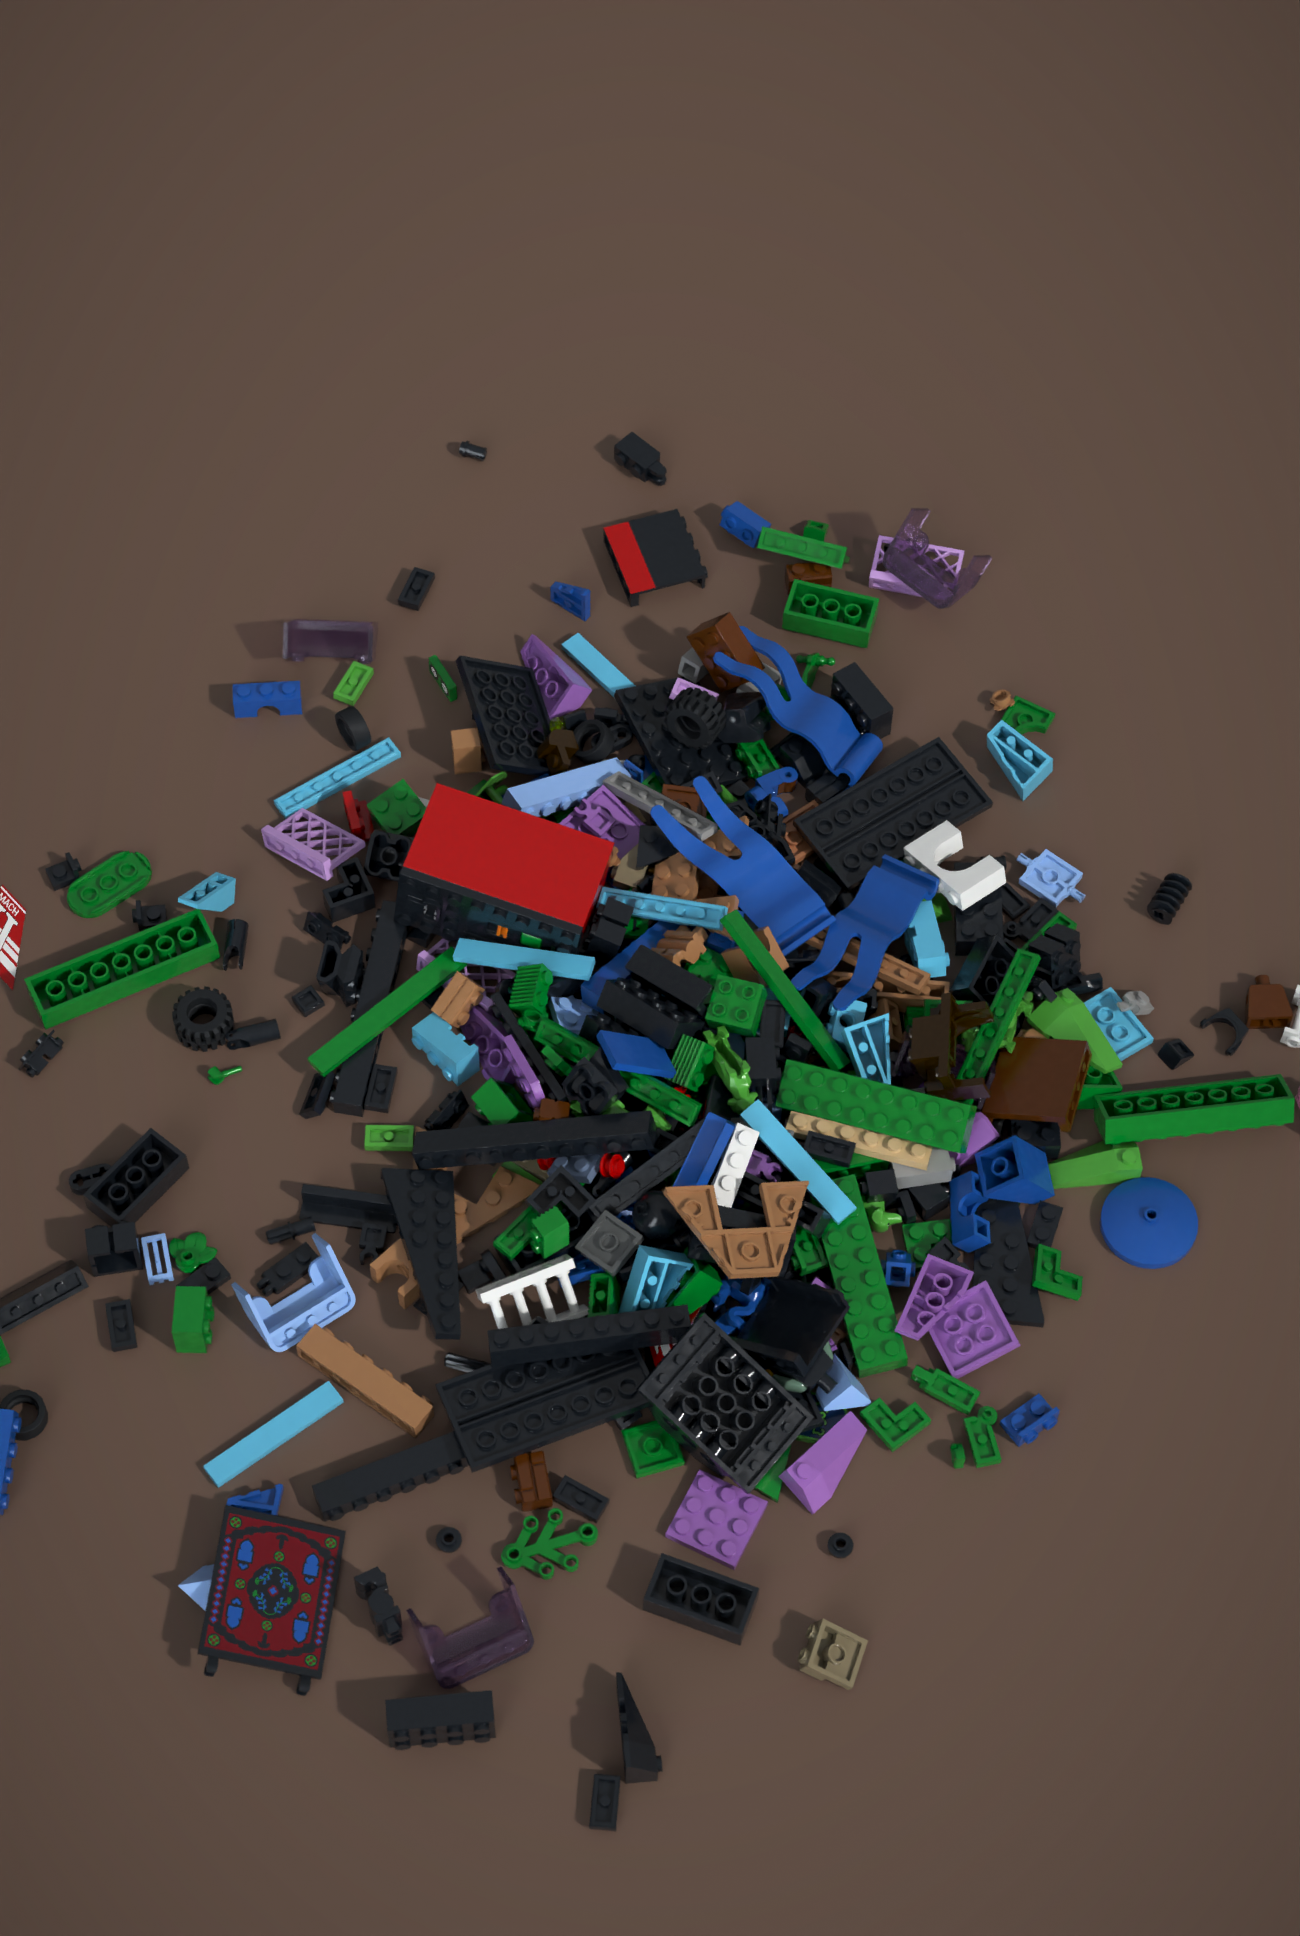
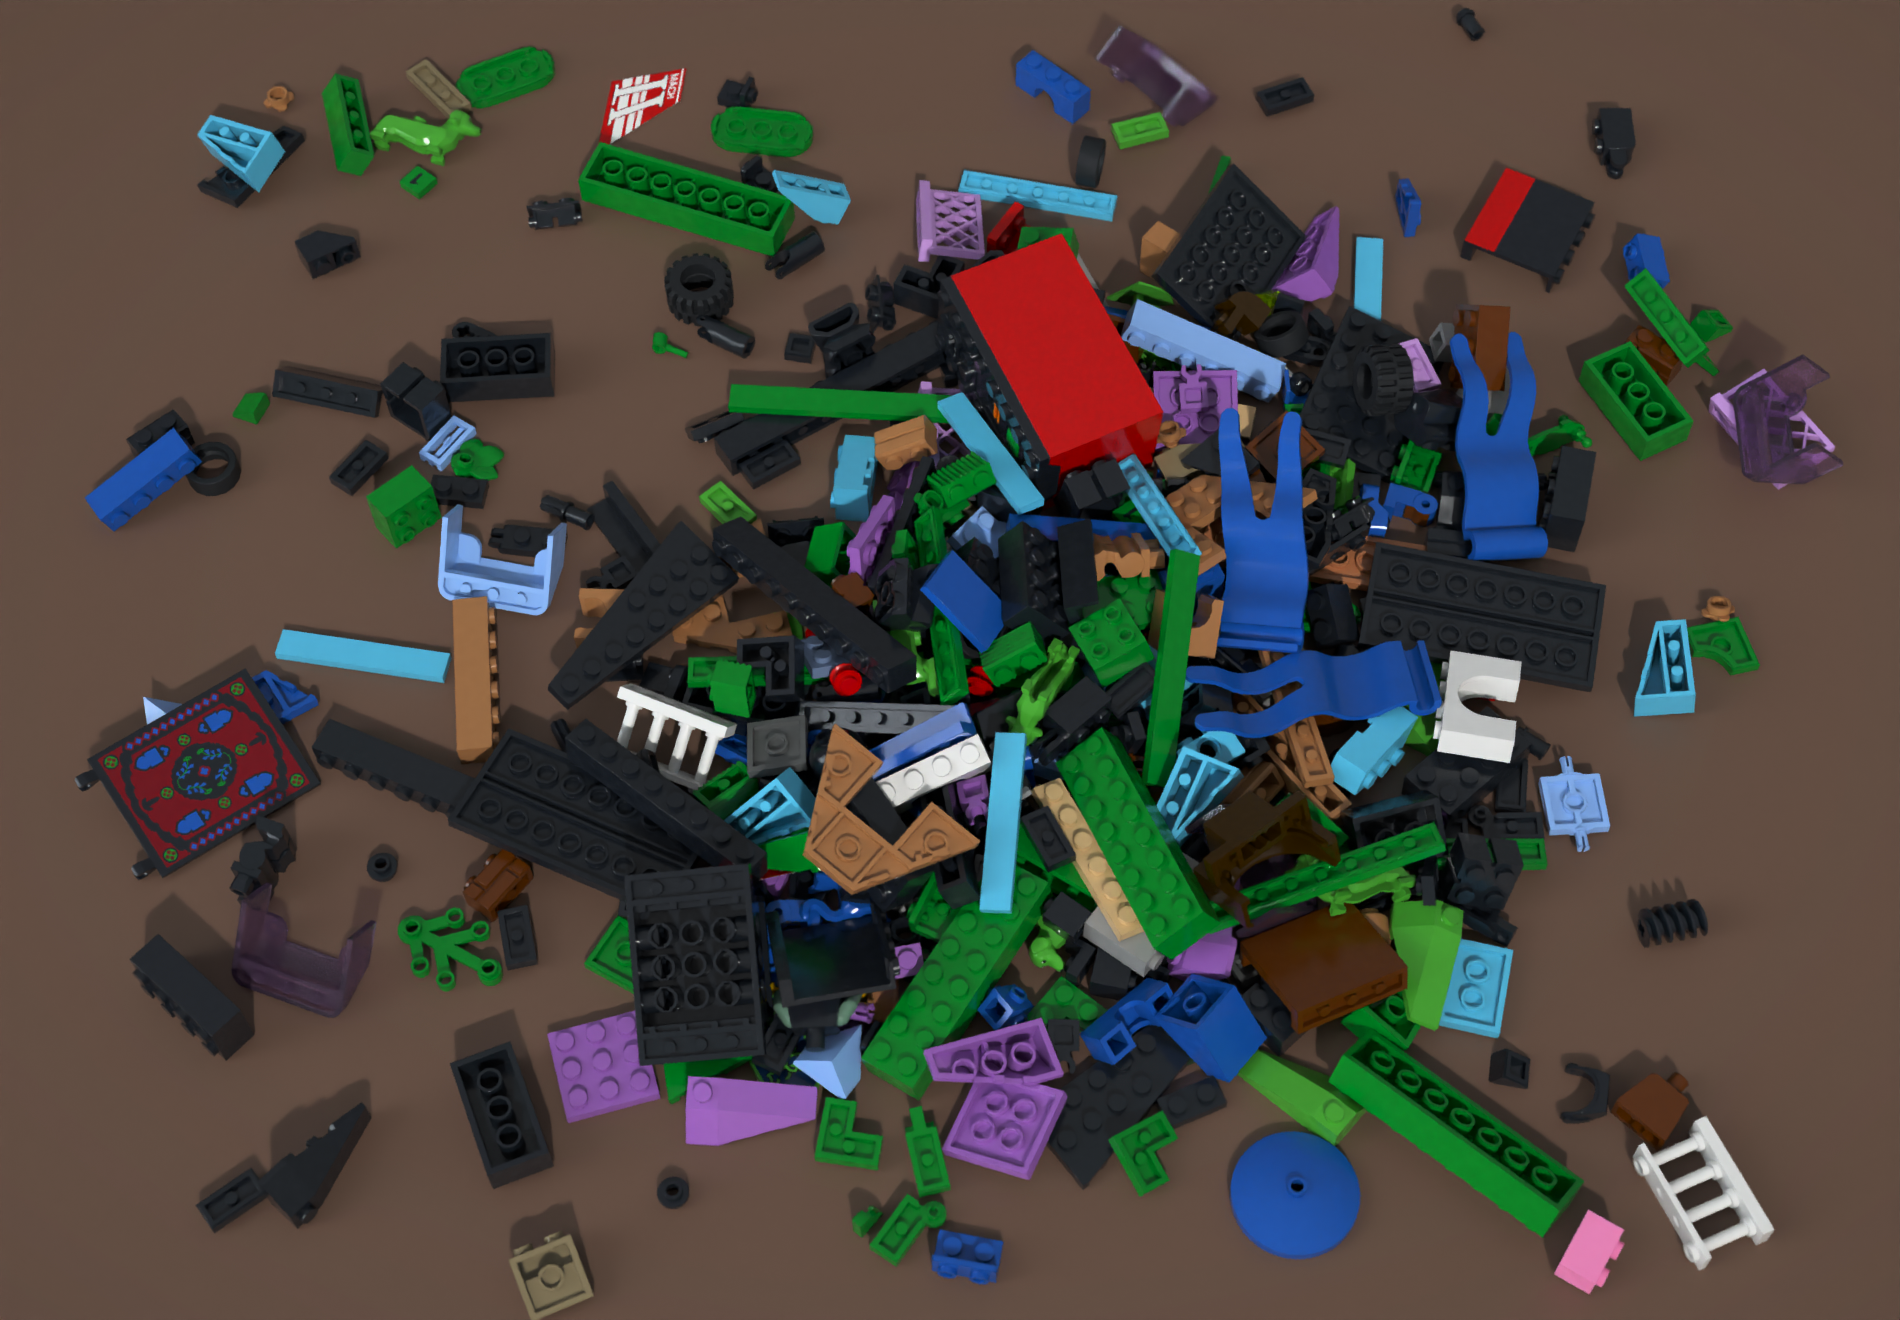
camera: 50 degrees right, 0 degrees up
(646, 798) = (1258, 425): light grey plate -> none
(1136, 1002) = (1522, 986): light grey plate -> none

